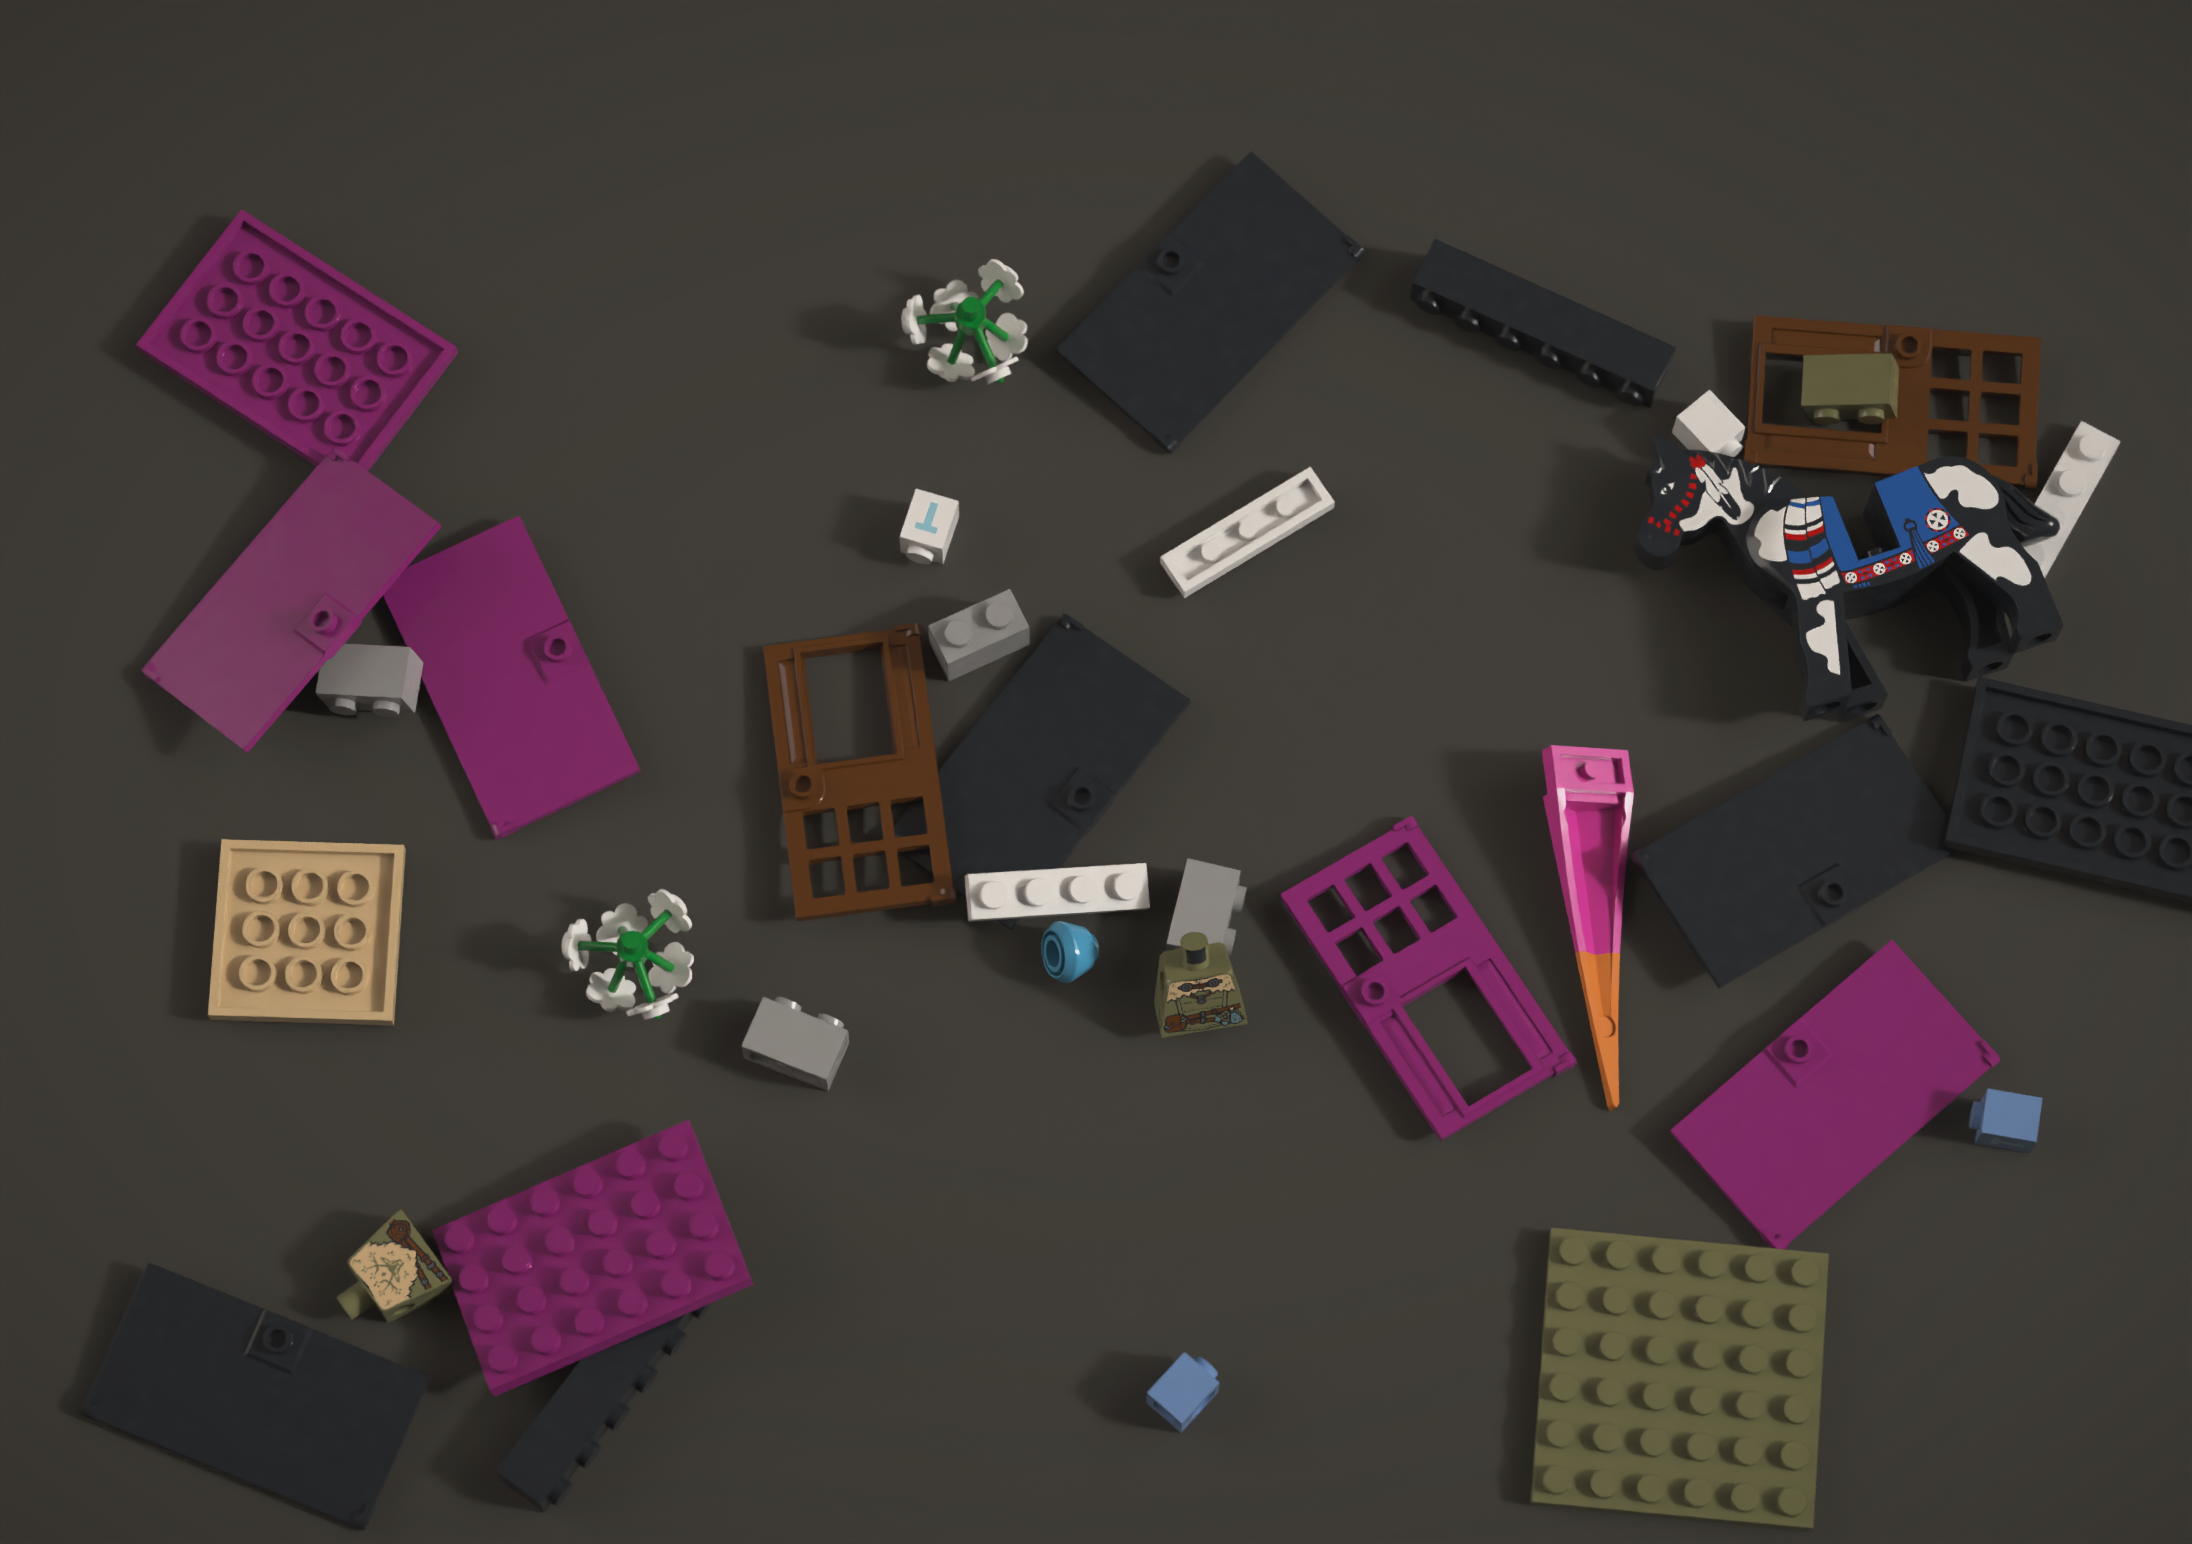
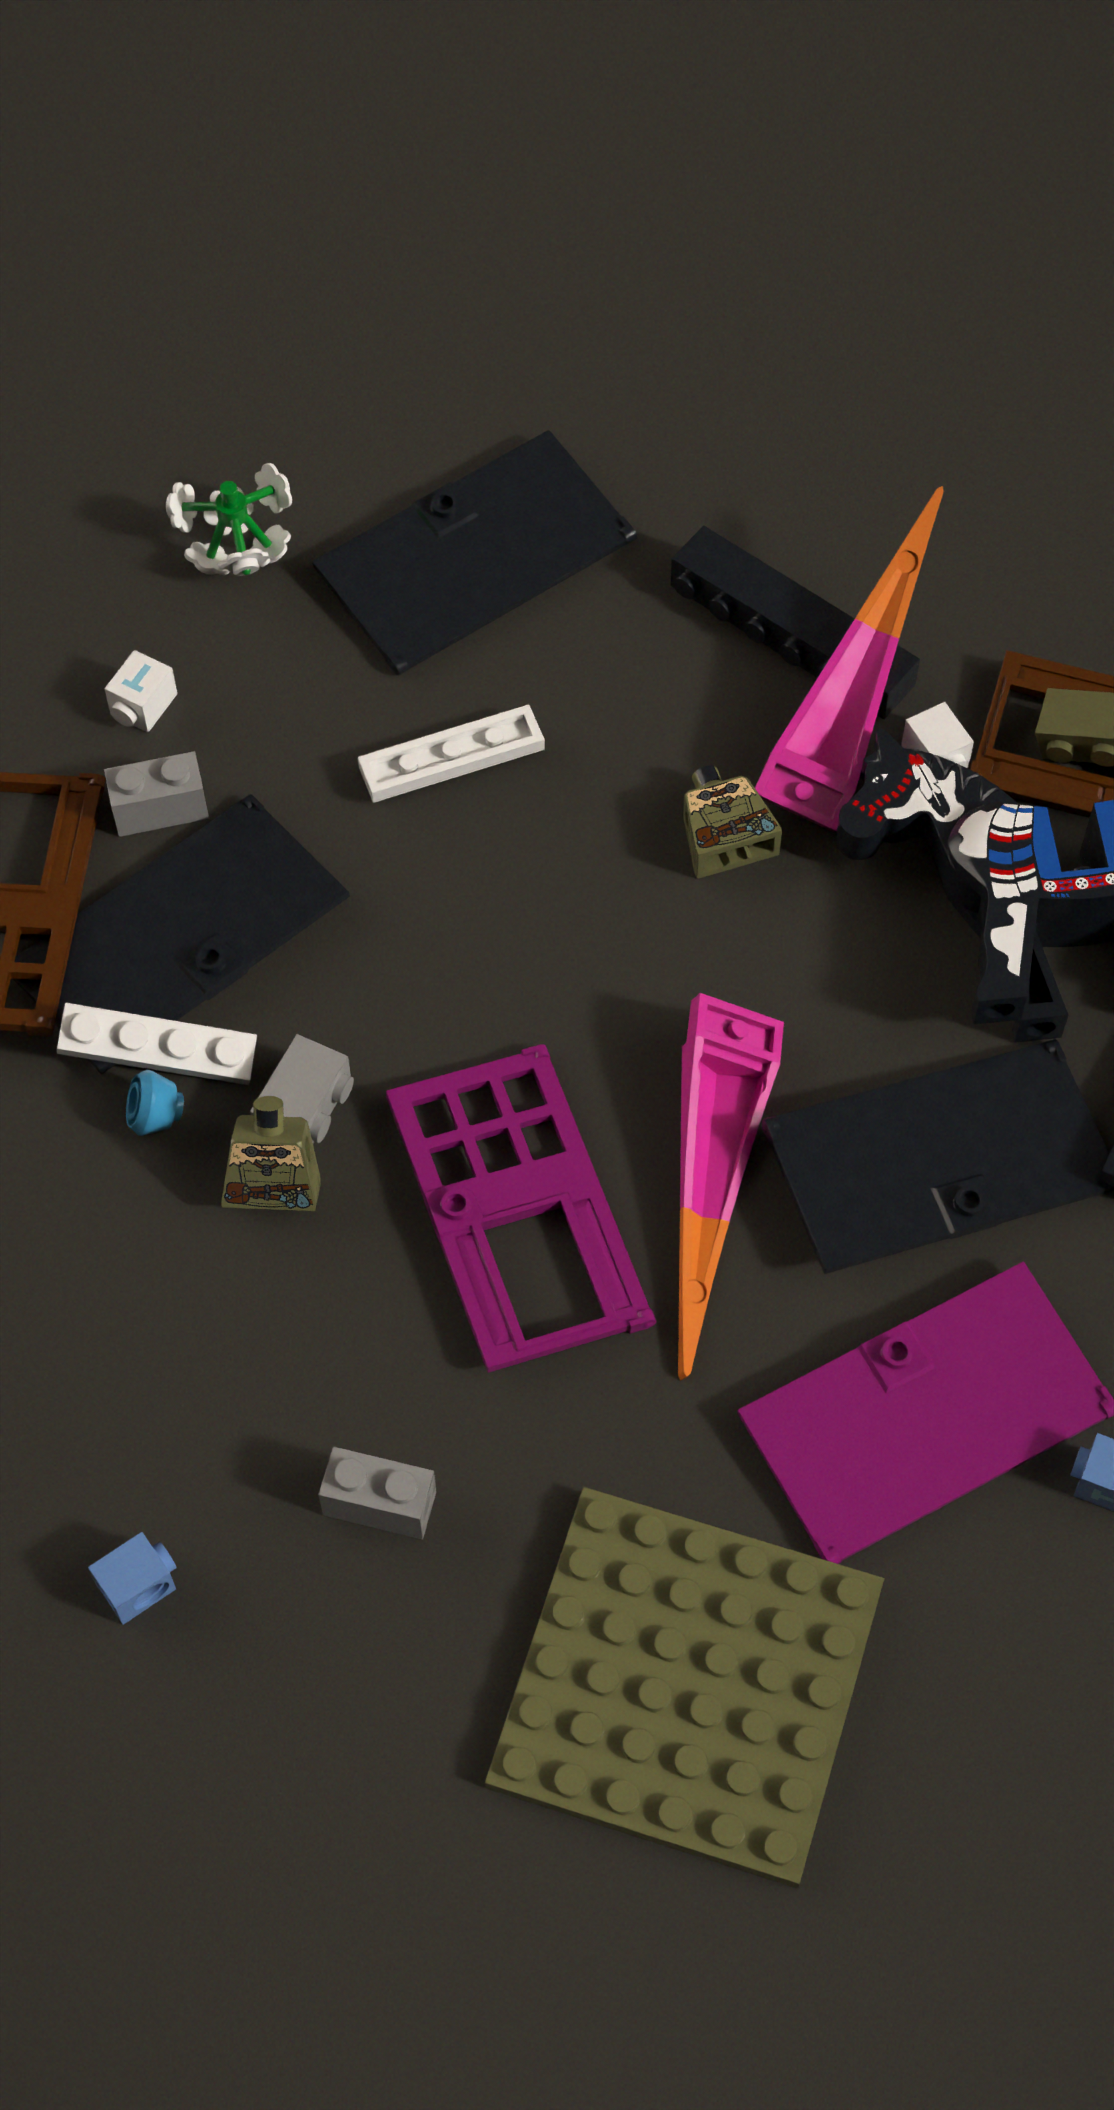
camera: 15 degrees right, 10 degrees down
(1376, 1272) = (377, 1493): none -> light grey brick
(1527, 555) = (727, 823): none -> torso
(1605, 454) = (824, 744): none -> dark pink plate

